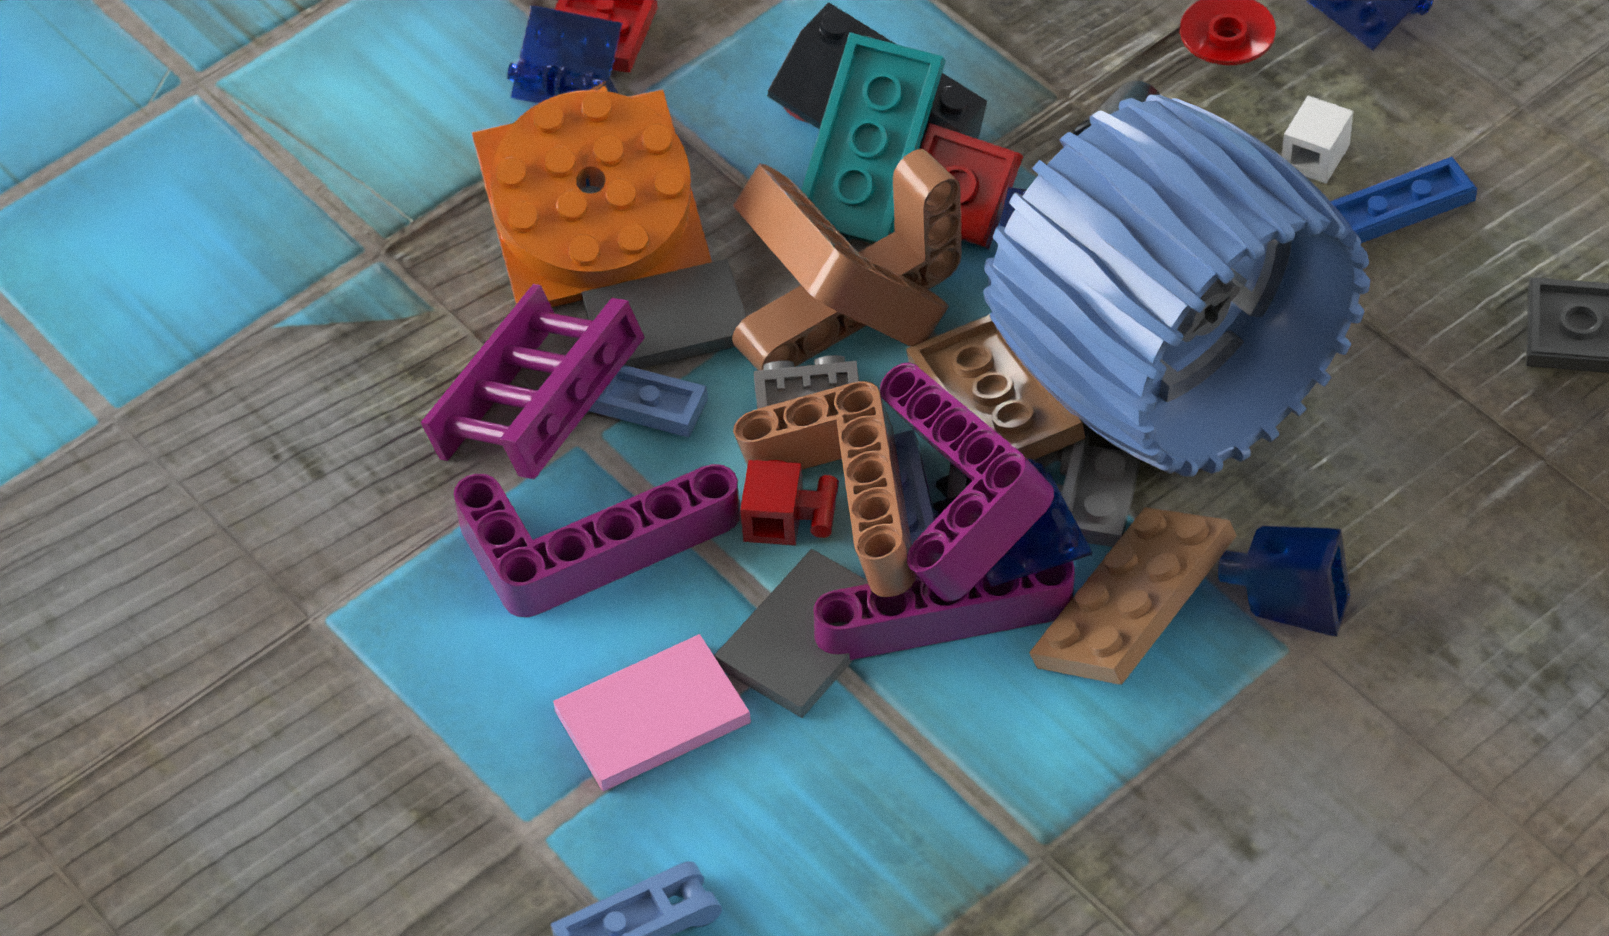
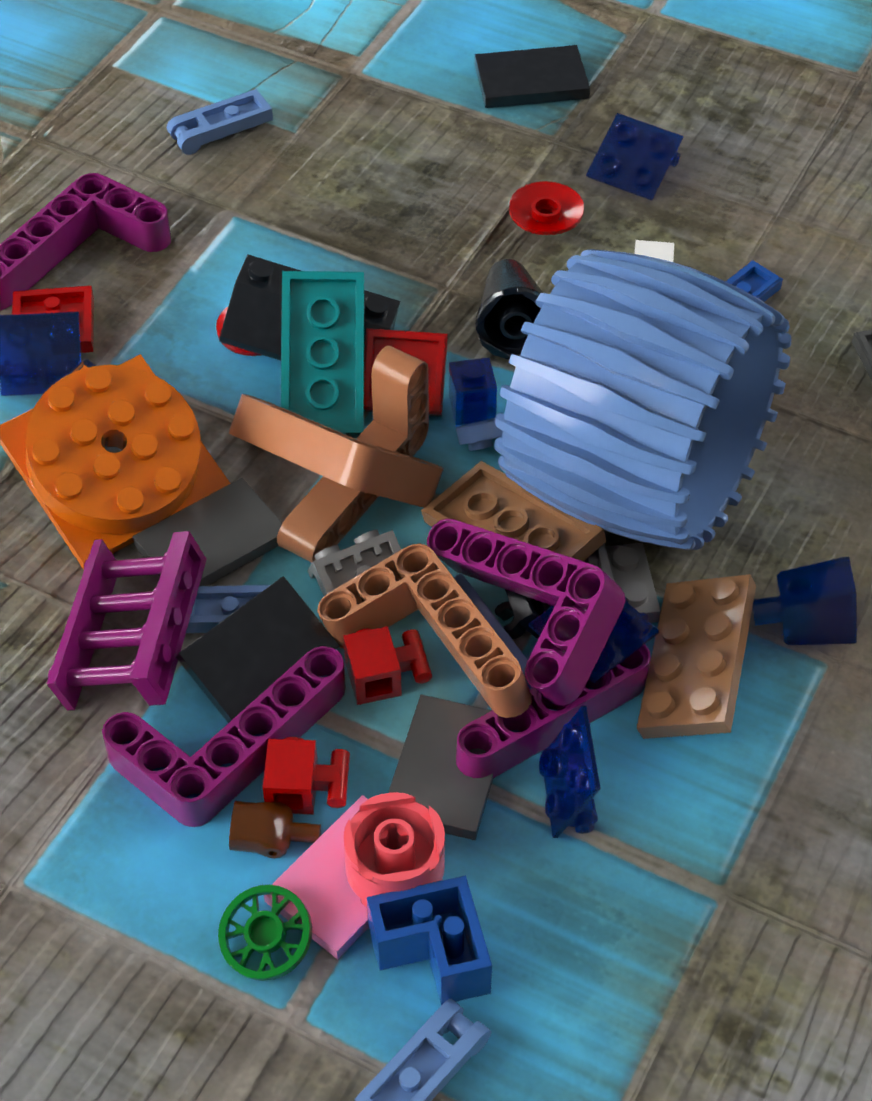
camera: 25 degrees left, 0 degrees up
(537, 740) = (265, 932): none -> green wheel
(586, 638) = (267, 829): none -> reddish brown piece
(639, 591) = (295, 775): none -> red brick
(653, 443) = (253, 647): none -> black tile
(694, 697) = (393, 845): none -> coral brick
(705, 784) = (433, 924): none -> blue brick
(928, 684) = (571, 777): none -> clear blue hinge

